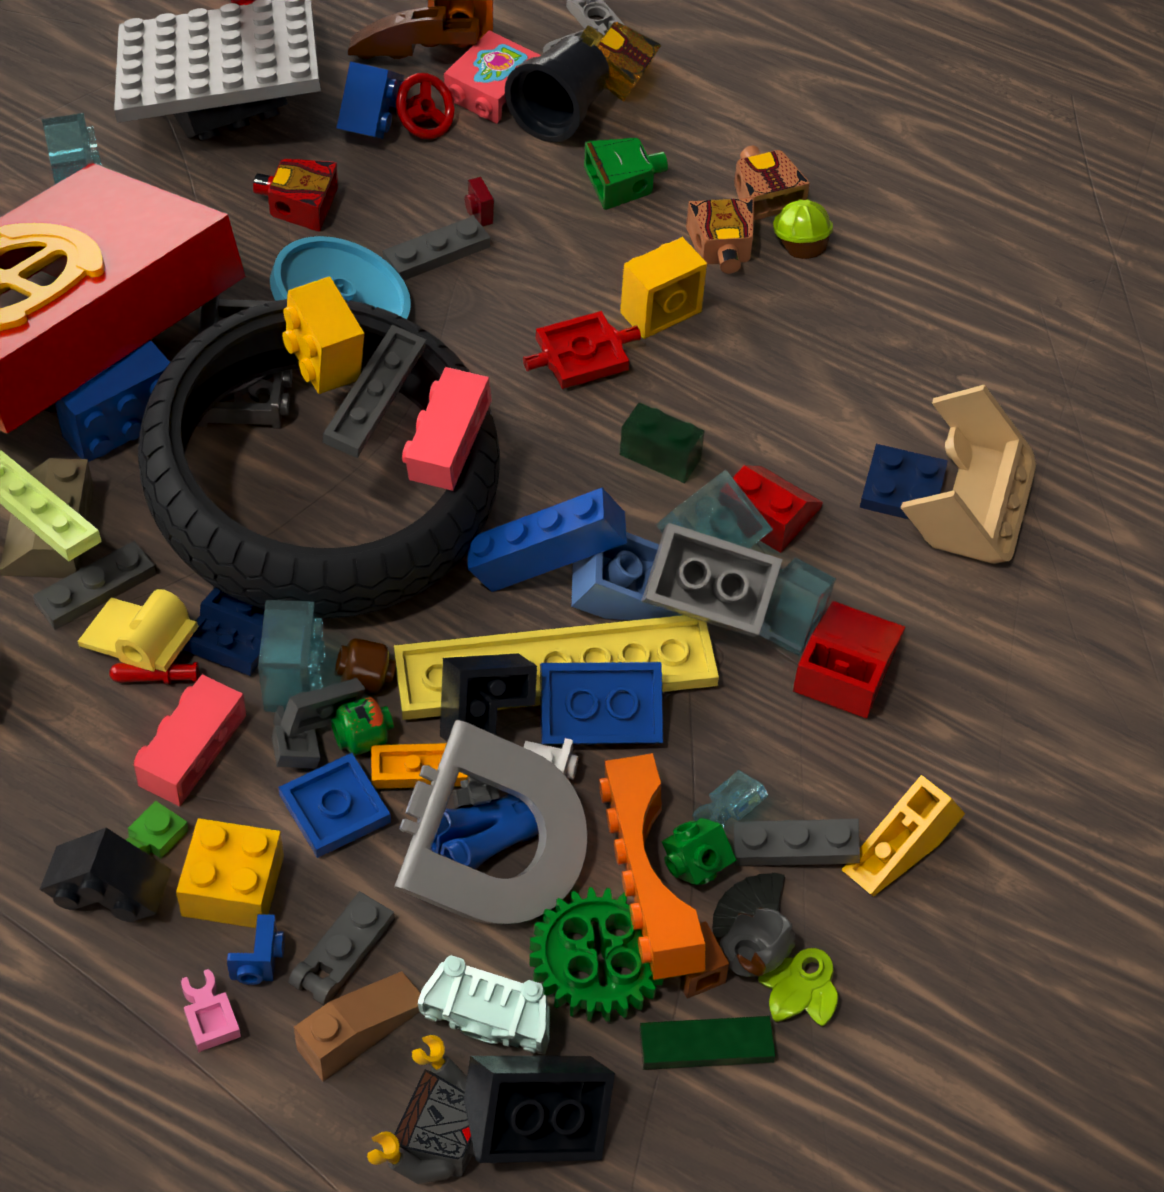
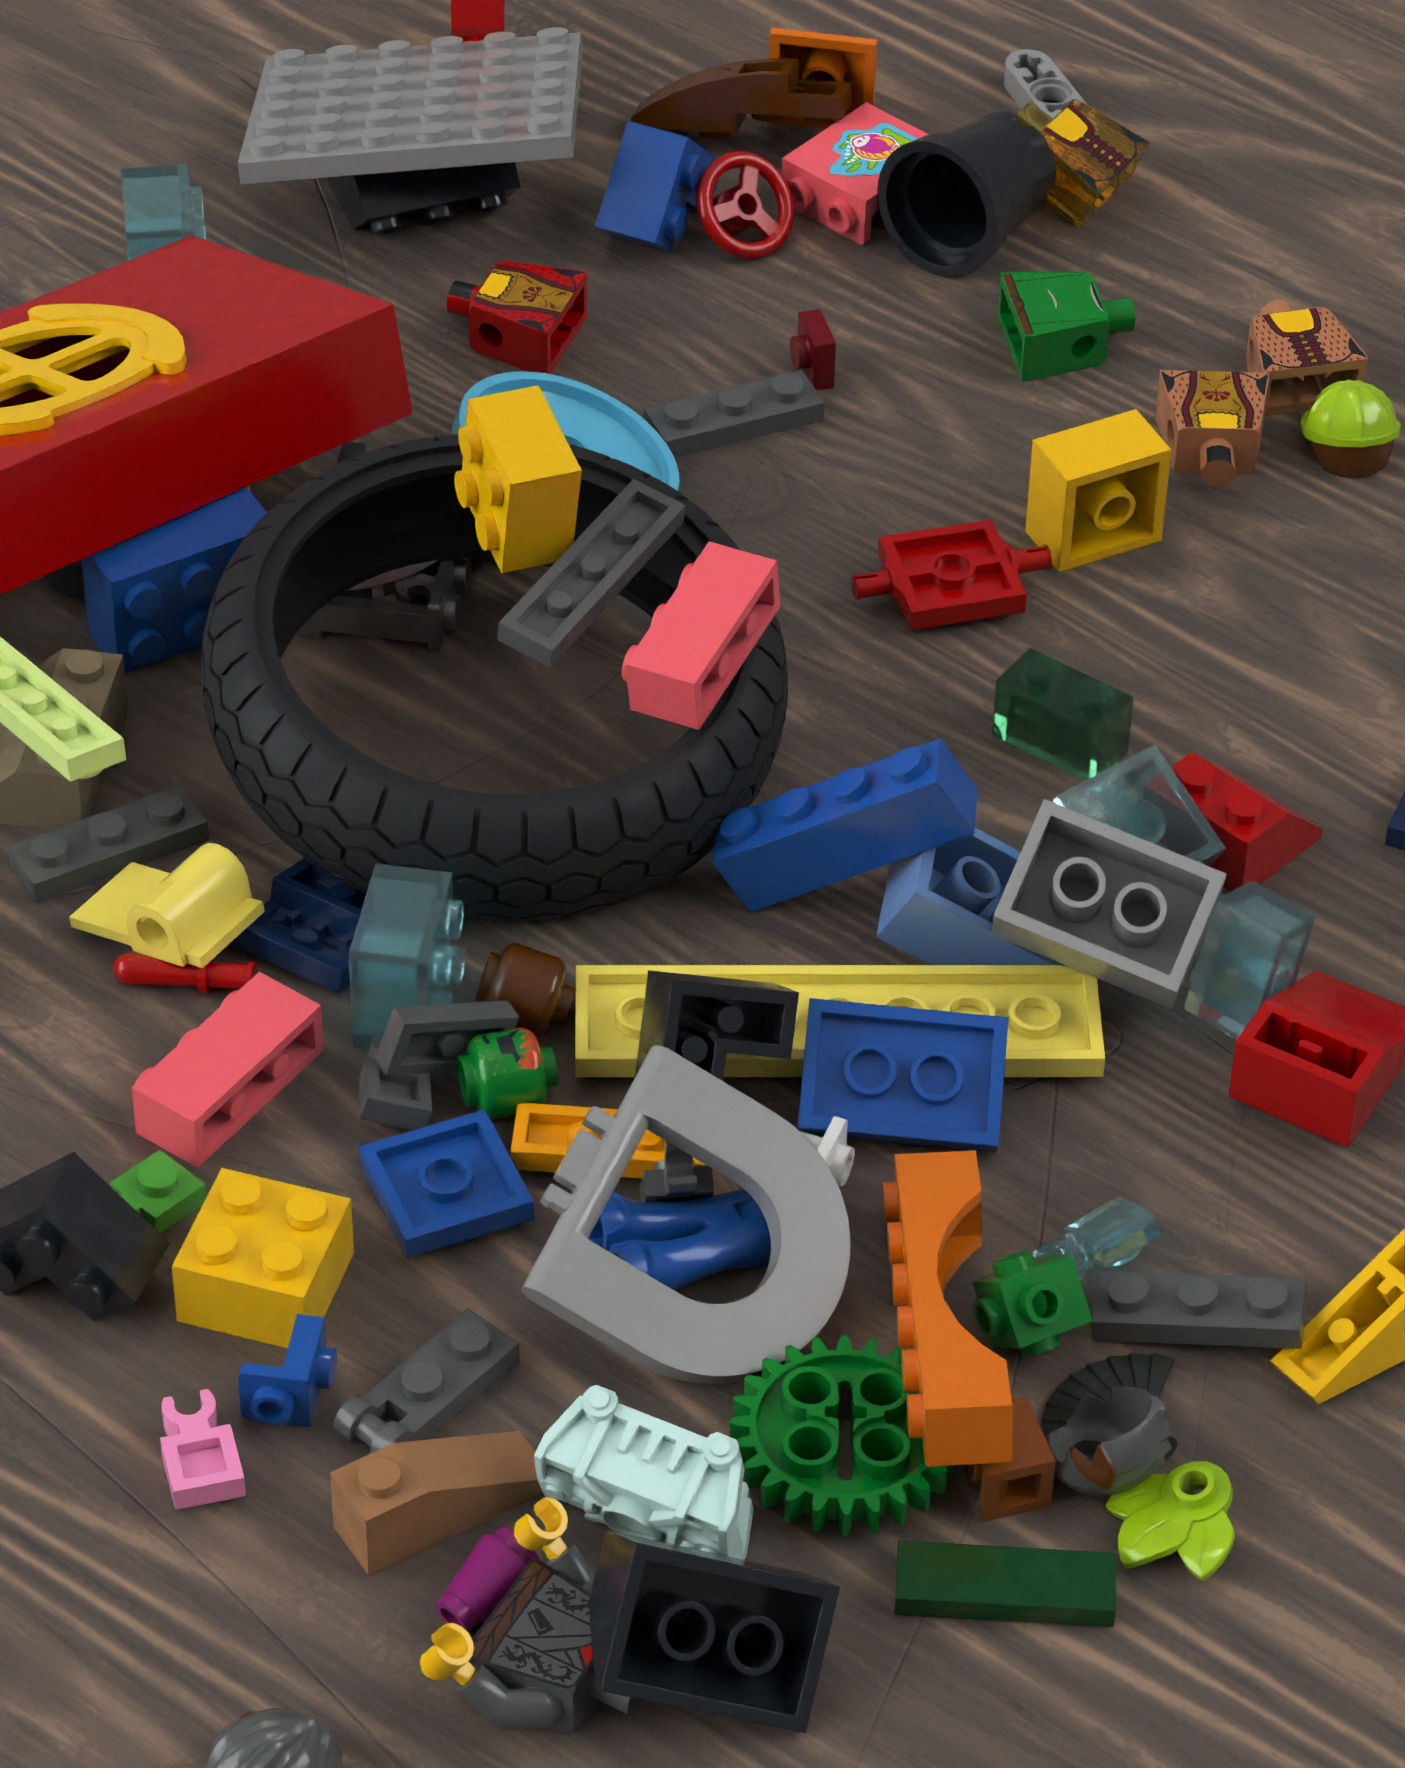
camera: 10 degrees right, 10 degrees down
(396, 1082) = (484, 1579): none -> magenta cone

